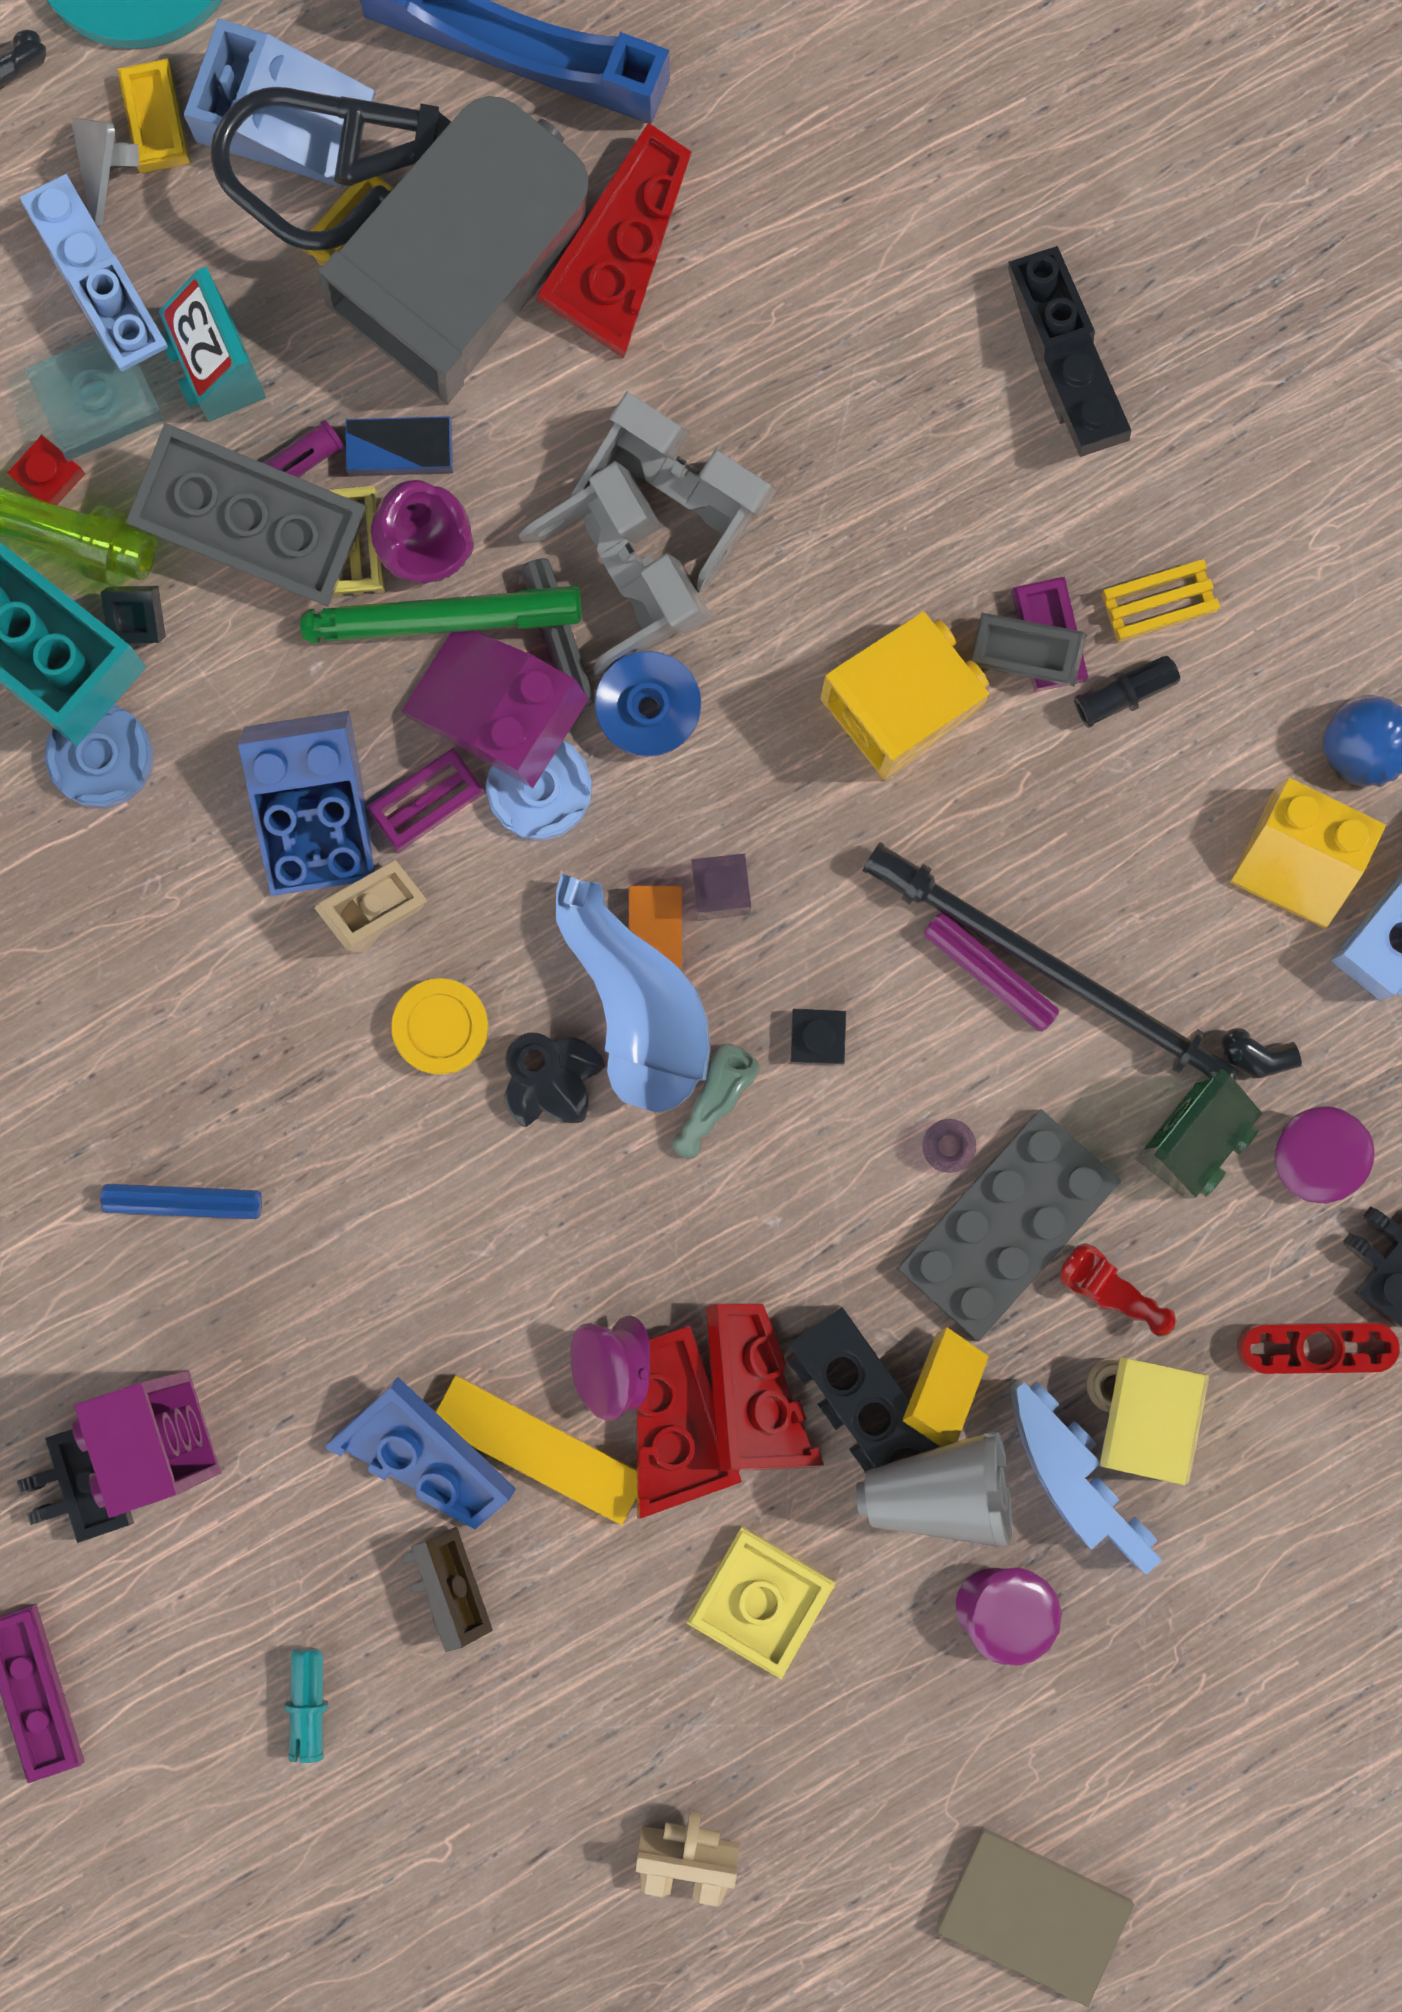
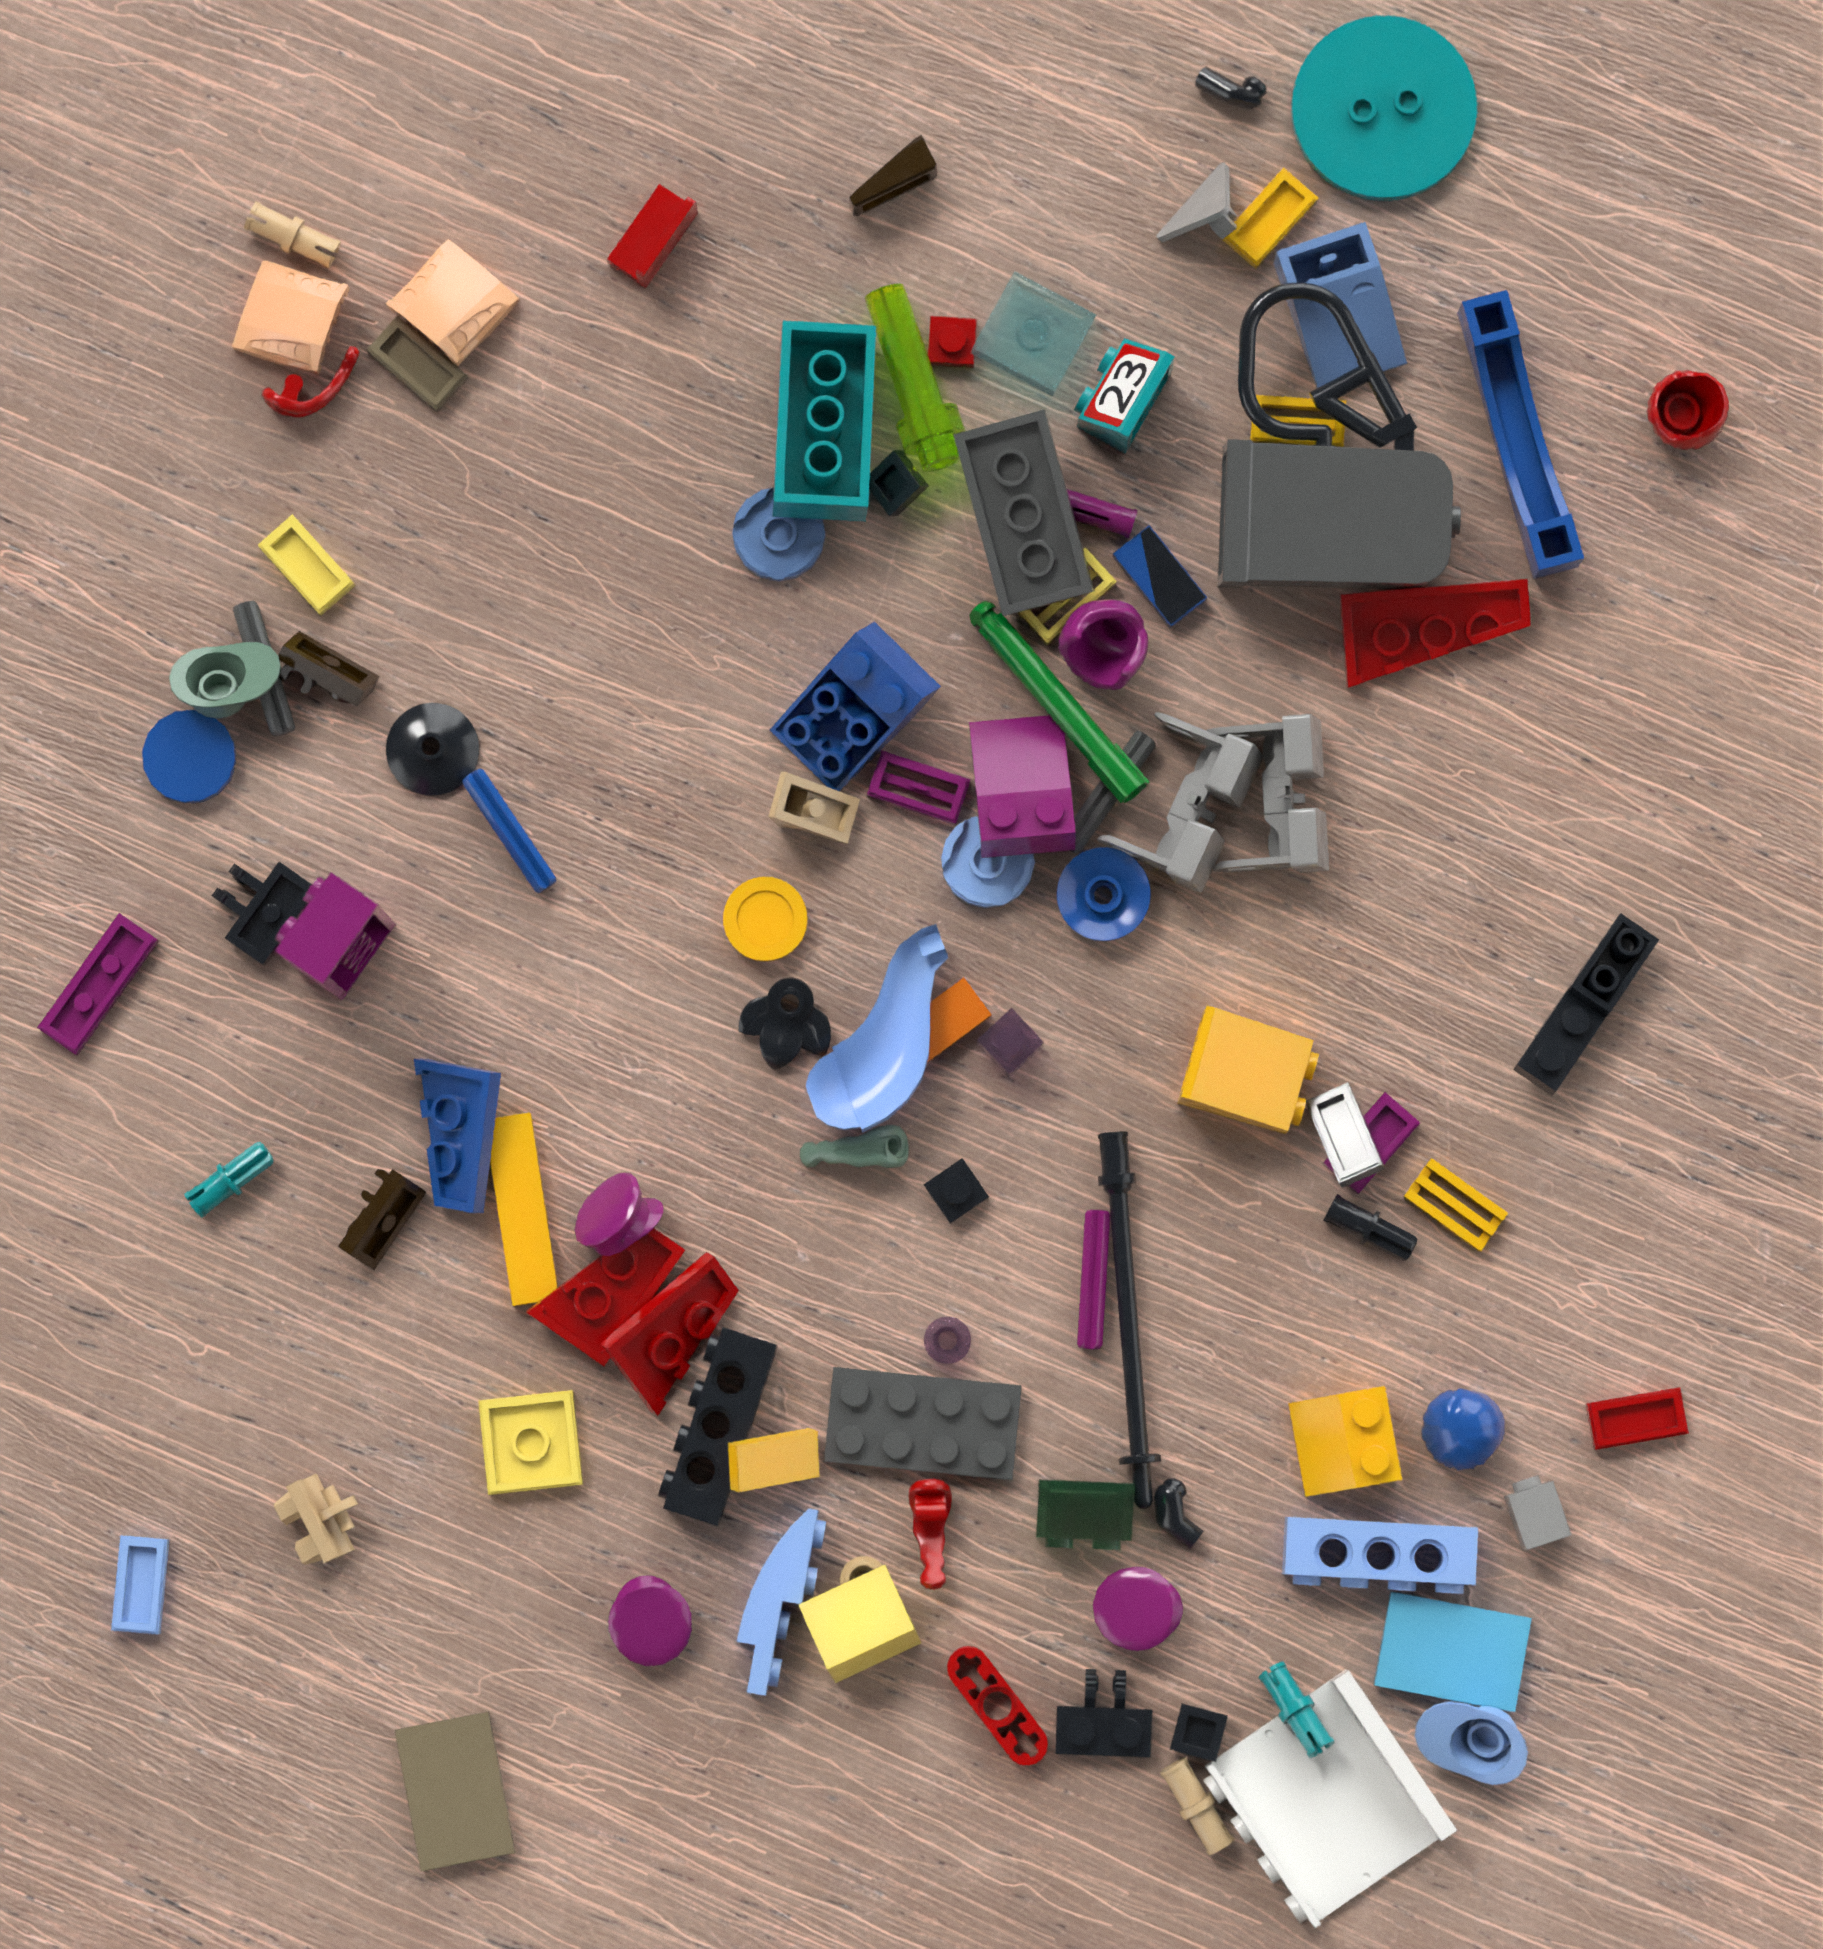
camera: 55 degrees right, 0 degrees up
(78, 1223) = (438, 772): none -> black dish
(93, 273) = (1117, 270): light blue slope -> none
(943, 1493) = (700, 1506): light grey cone -> none

